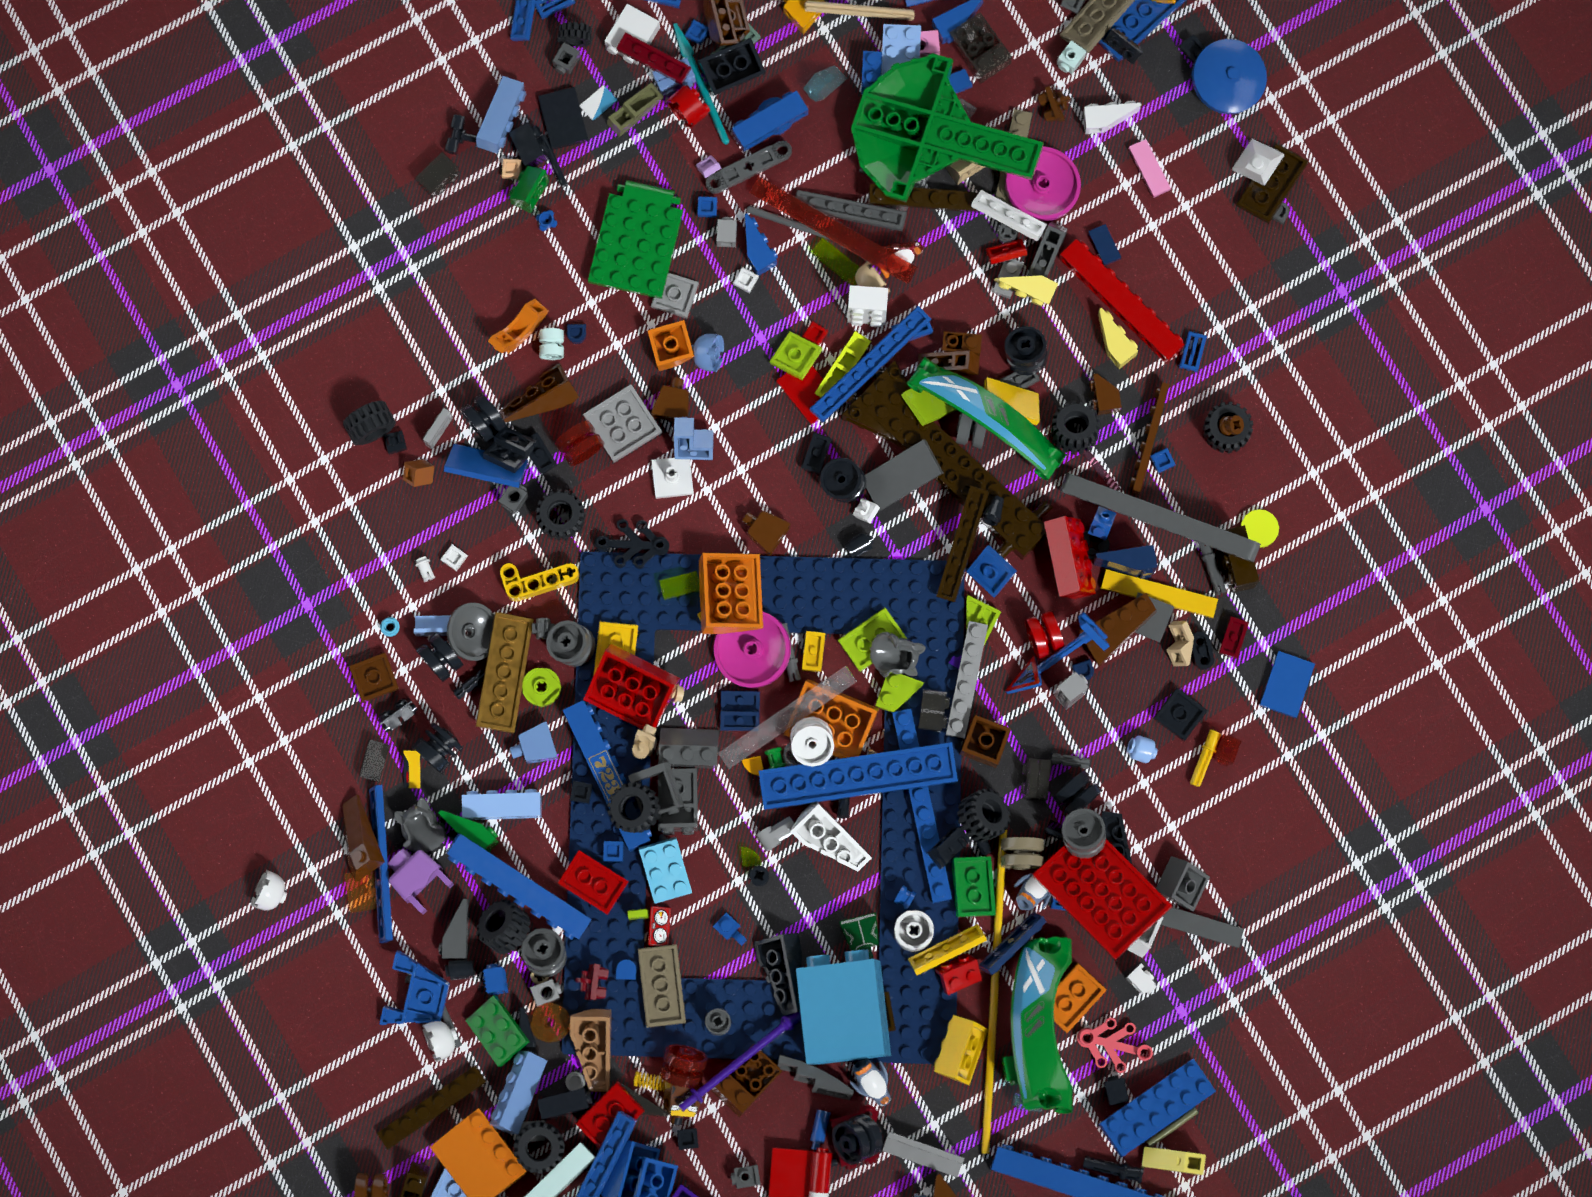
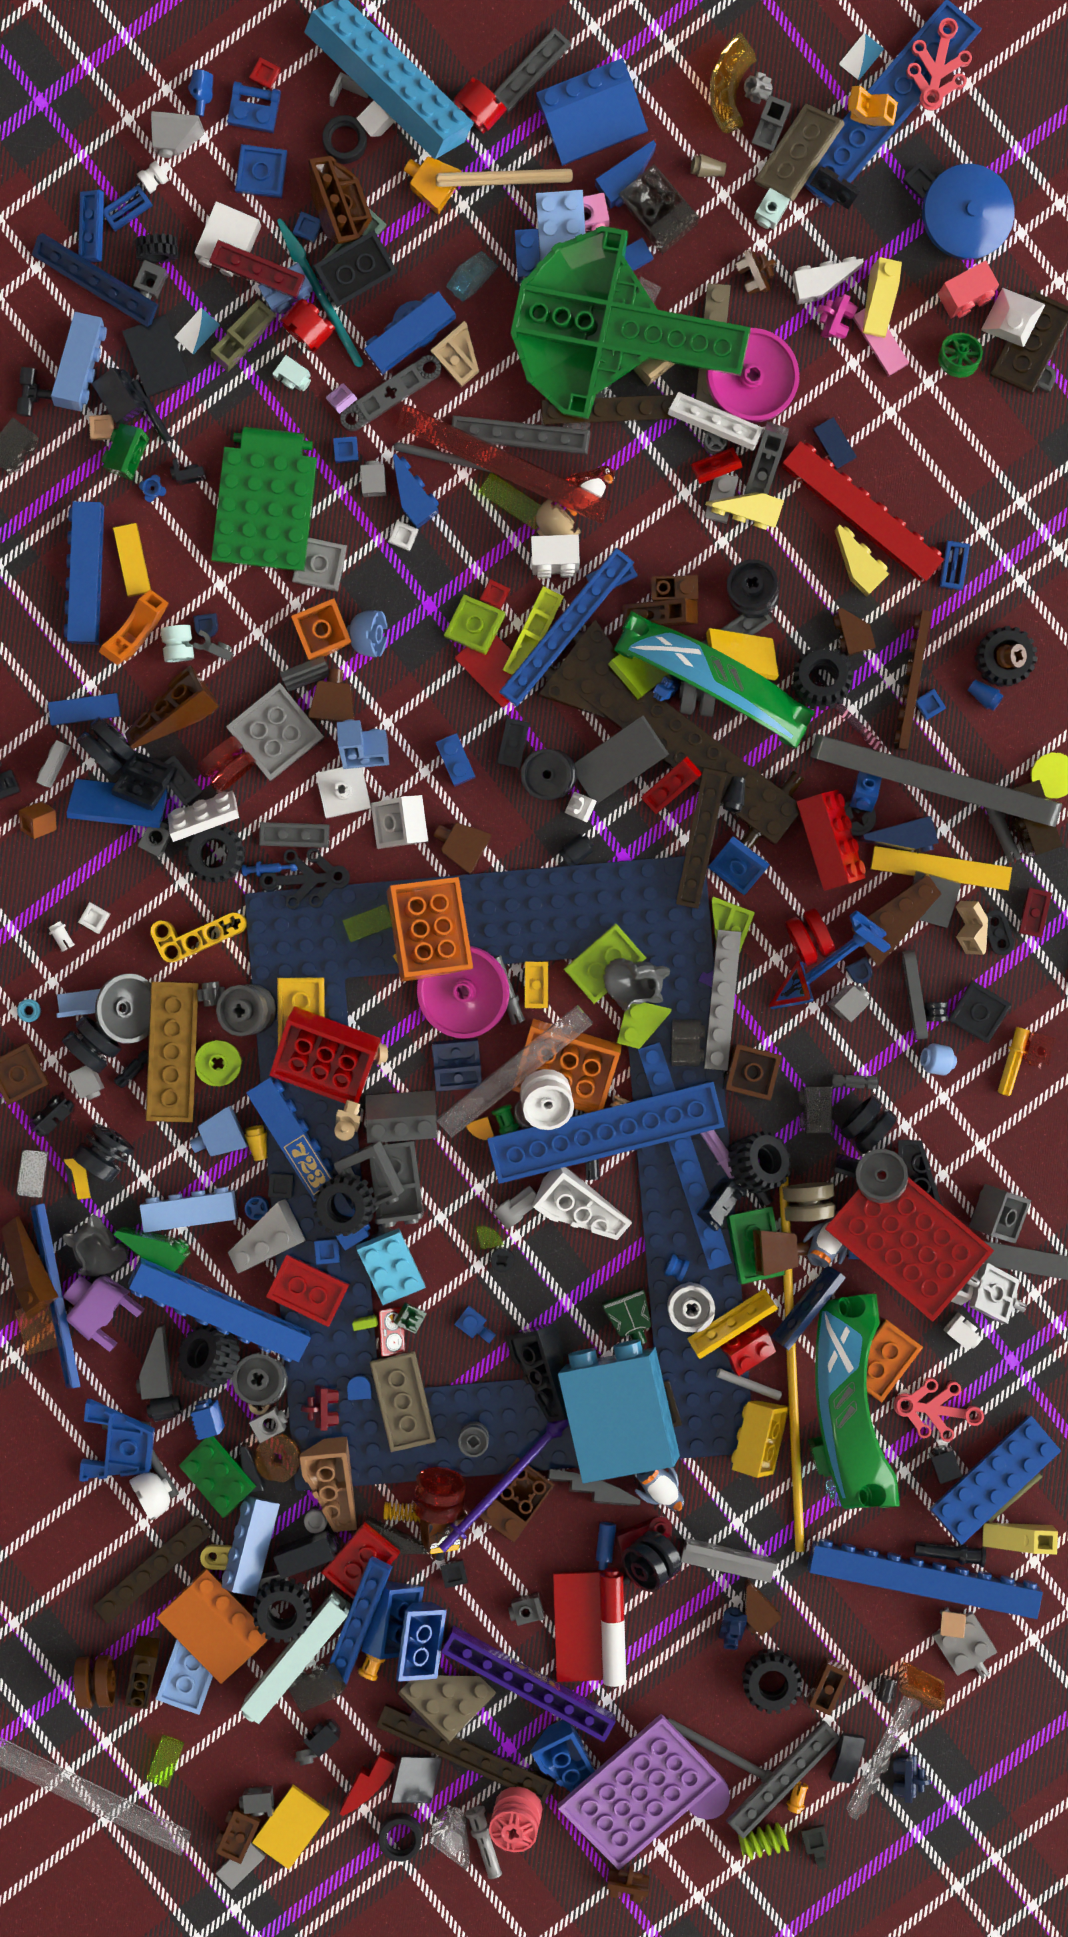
camera: 10 degrees left, 10 degrees up
(430, 690) = (86, 1082): none -> light grey brick
(467, 388) = (84, 709): none -> blue tile
(484, 280) = (85, 572): none -> blue brick
(492, 1101) = (220, 1562): none -> light yellow plate
(522, 53) = (94, 279): none -> dark blue plate
(522, 274) = (132, 559): none -> yellow tile
(555, 482) = (202, 815): none -> white plate
(556, 808) = (254, 1211): none -> blue wheel
(564, 835) = (267, 1238): none -> light grey wedge
(566, 755) = (257, 1141): none -> yellow cone
(580, 212) = (191, 474): none -> black bracket
(584, 353) = (221, 649): none -> dark grey plate
(602, 532) = (260, 868): none -> blue piece
(627, 508) = (294, 835): none -> dark grey tile
(650, 379) = (305, 673): none -> dark grey tile
(671, 143) = (292, 374): none -> light aqua brick
(676, 916) = (410, 1317): none -> dark green tile
(715, 506) = (399, 821): none -> white slope
(767, 461) = (455, 760): none -> blue brick
(806, 143) = (457, 355): none -> tan wing
(942, 499) = (671, 785): none -> red plate
(947, 421) = (667, 688): none -> blue hinge
(949, 801) = (718, 1150): none -> lavender axle
(956, 1004) = (749, 1384): none -> light grey bar
(990, 891) = (776, 1251): none -> reddish brown torso
(1023, 20) = (707, 167): none -> dark tan cone
(1119, 139) = (832, 314): none -> dark pink hips
(1127, 694) = (914, 994): none -> dark grey beam
(1144, 710) = (936, 1011): none -> black wheel
(1152, 133) = (881, 295): none -> light yellow slope
(1171, 948) = (995, 1293): none -> plate
(1209, 457) = (985, 694): none -> blue cone
(1212, 186) = (962, 343): none -> green wheel
(1223, 136) = (968, 290): none -> coral brick

